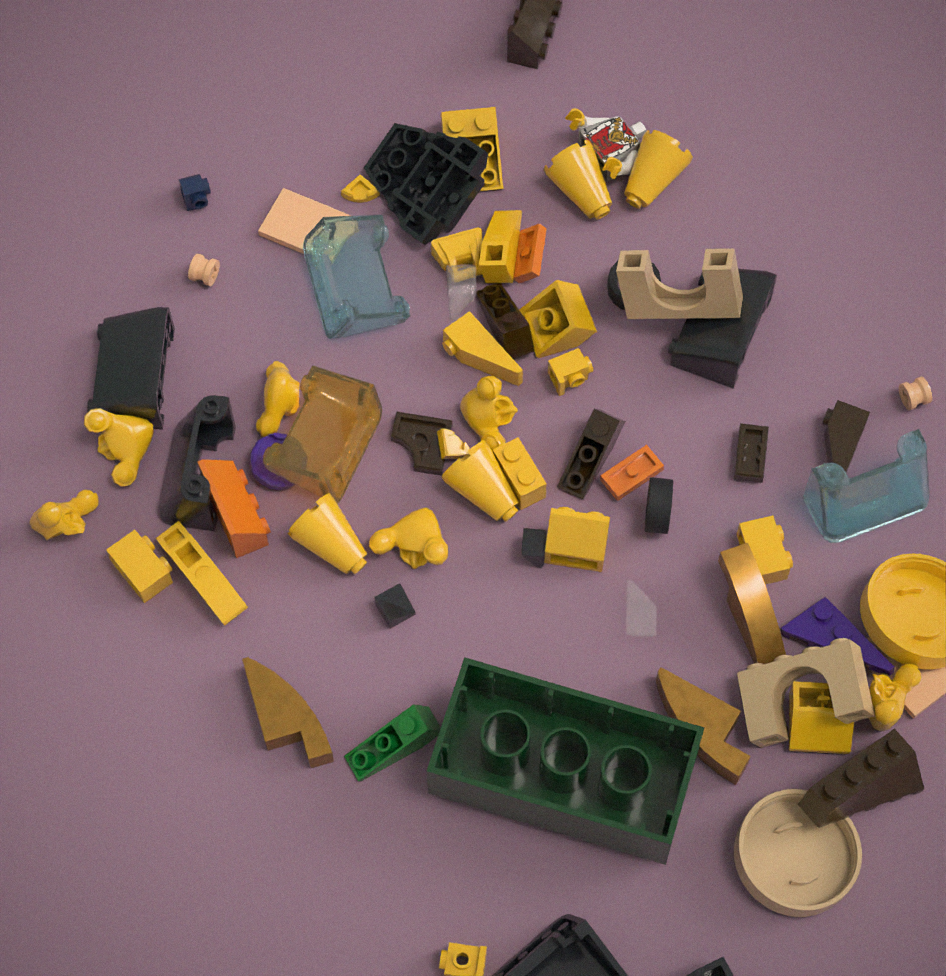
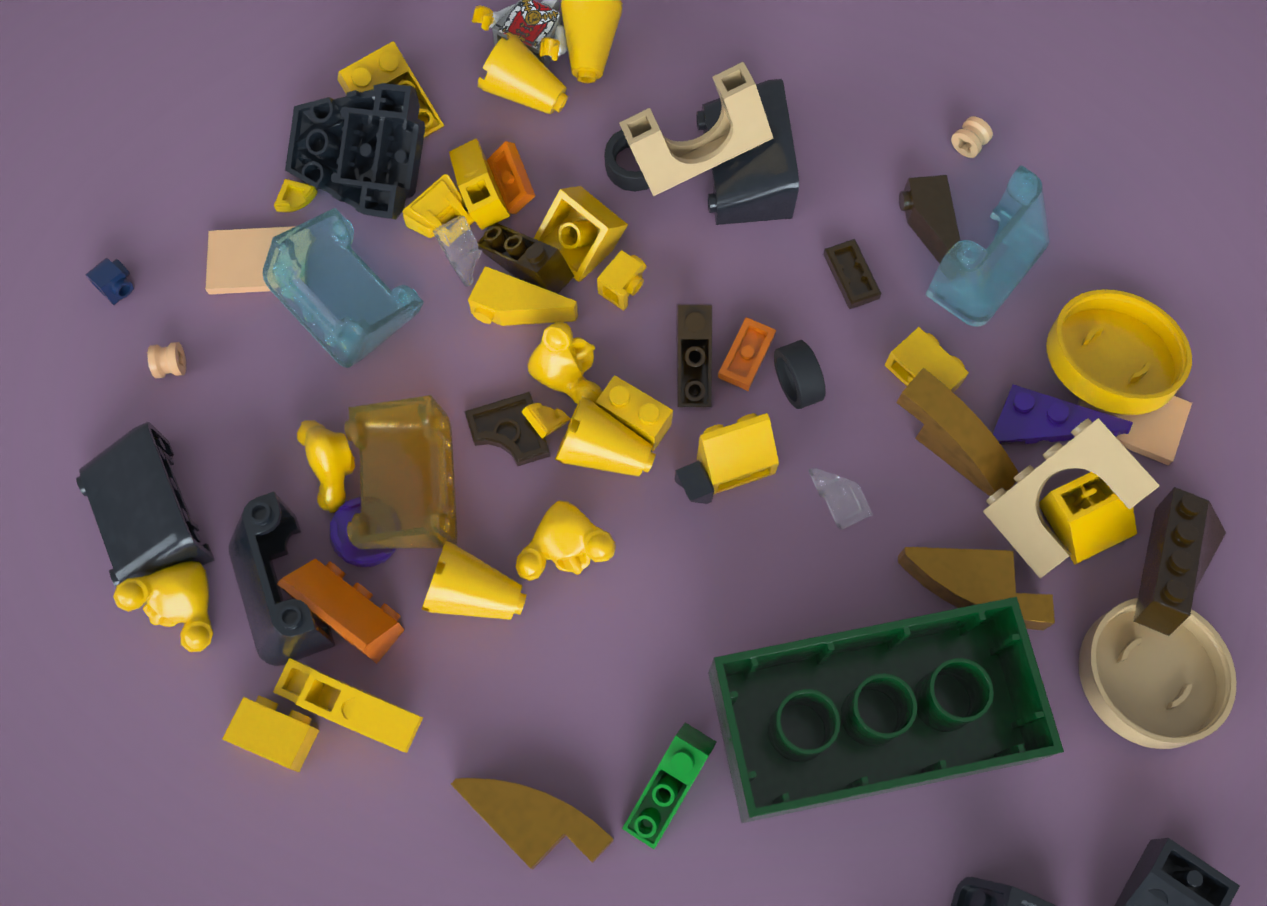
camera: 30 degrees left, 5 degrees up
(65, 517) = (152, 722): yellow head -> none
(394, 605) = (583, 627): black slope -> none
(890, 695) = (1145, 450): yellow head -> none

